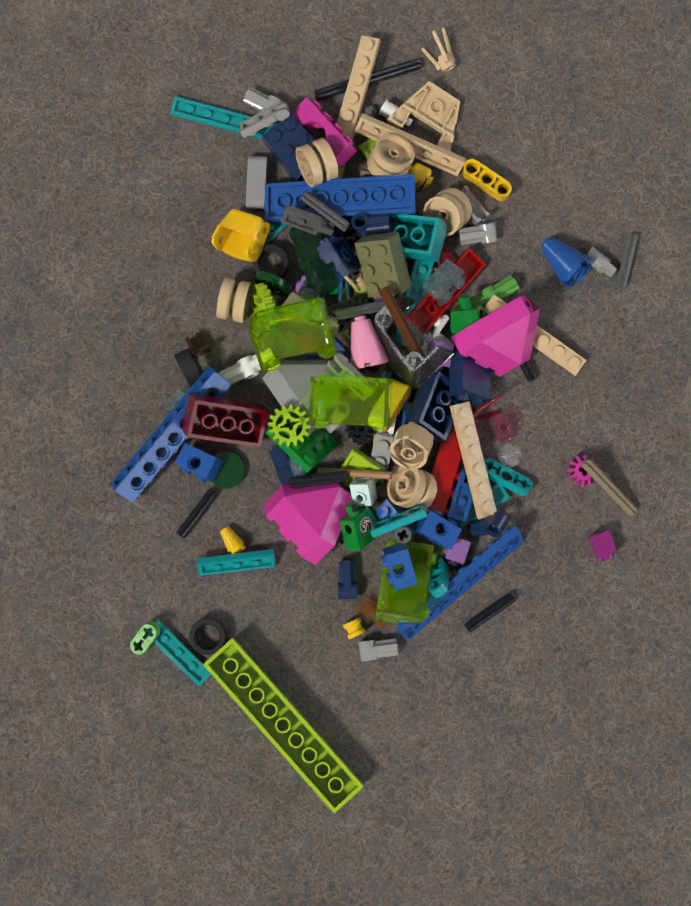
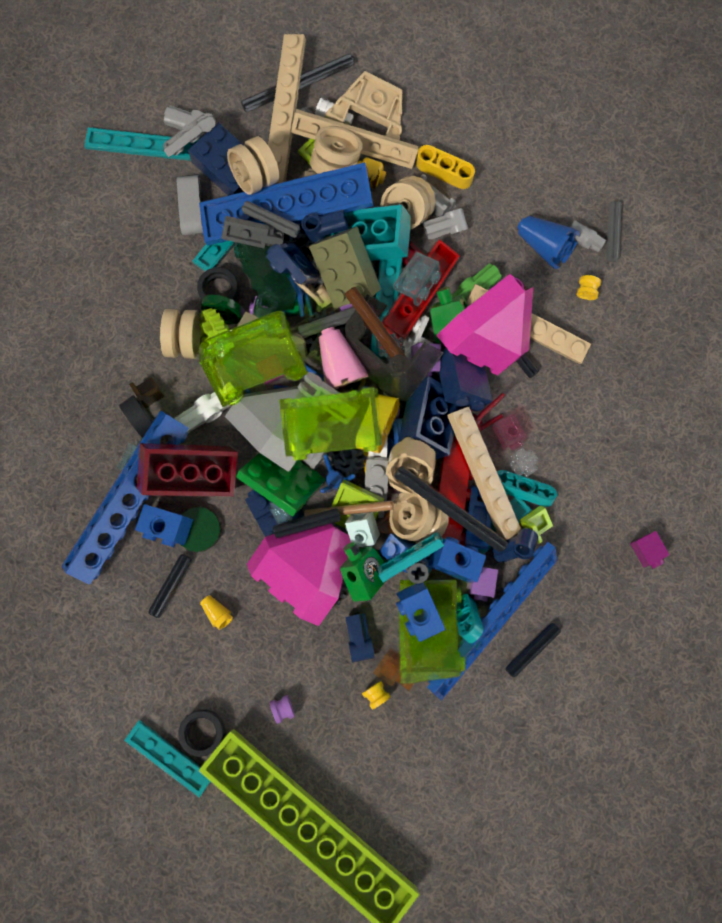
camera: 15 degrees left, 5 degrees down
(148, 640) = (121, 745): bright green beam -> none
(236, 562) = (223, 637): teal tile -> none
(241, 235) = (179, 261): yellow piece -> none
(275, 627) = (282, 709): none -> medium lavender wheel
(277, 430) = (254, 467): lime gear -> none
(312, 118) = (244, 127): dark pink arch -> none
(346, 444) = (334, 478): none -> blue plant
(375, 649) = (402, 717): light grey piece -> none
(438, 486) = (450, 508): none -> black axle
(446, 60) = (379, 51): tan plant -> none
(511, 507) = (538, 521): none -> lime bracket
(578, 475) = (614, 461): dark pink gear -> none
(594, 309) = (588, 287): none -> yellow wheel
(613, 491) = (645, 480): dark tan axle -> none

